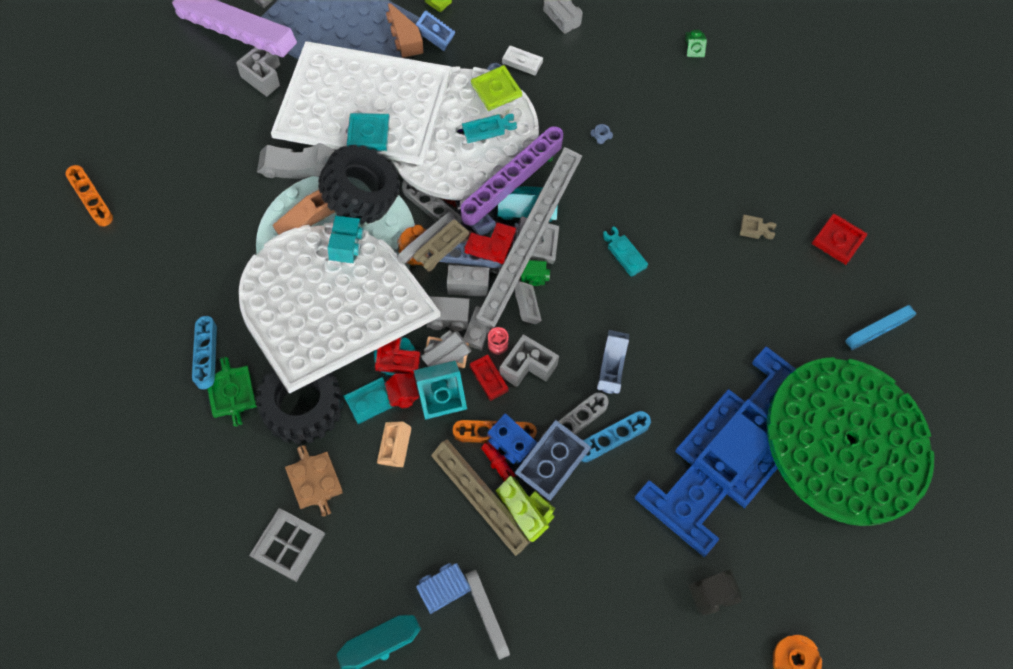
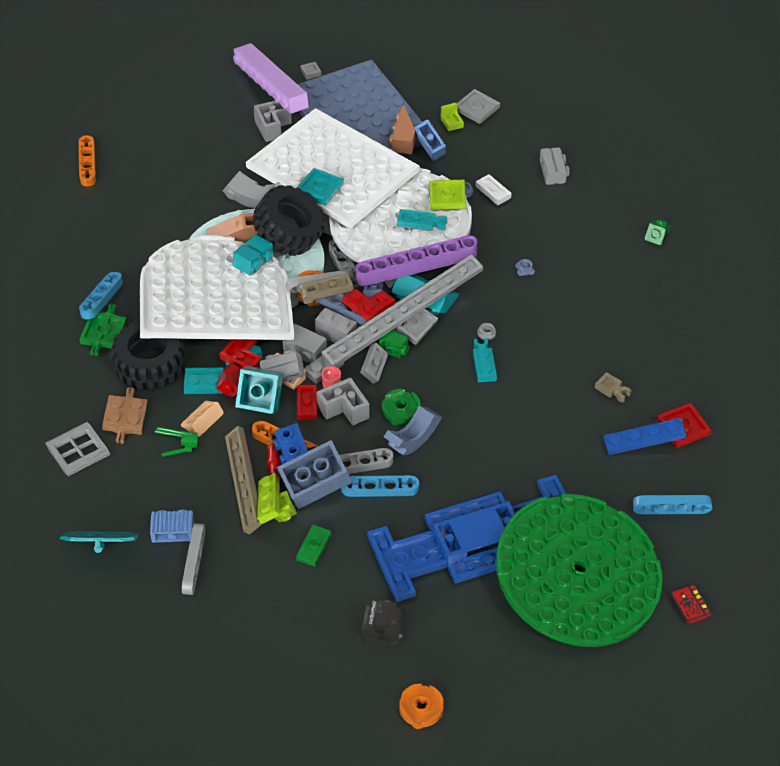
camera: 30 degrees right, 15 degrees down
(397, 478) = (188, 439): none -> green plant
(577, 350) = (400, 415): none -> green plate
(591, 535) = (313, 545): none -> green plate
(609, 214) = (487, 331): none -> light grey plate
(816, 267) = (644, 436): none -> blue plate
(954, 420) = (691, 603): none -> piece

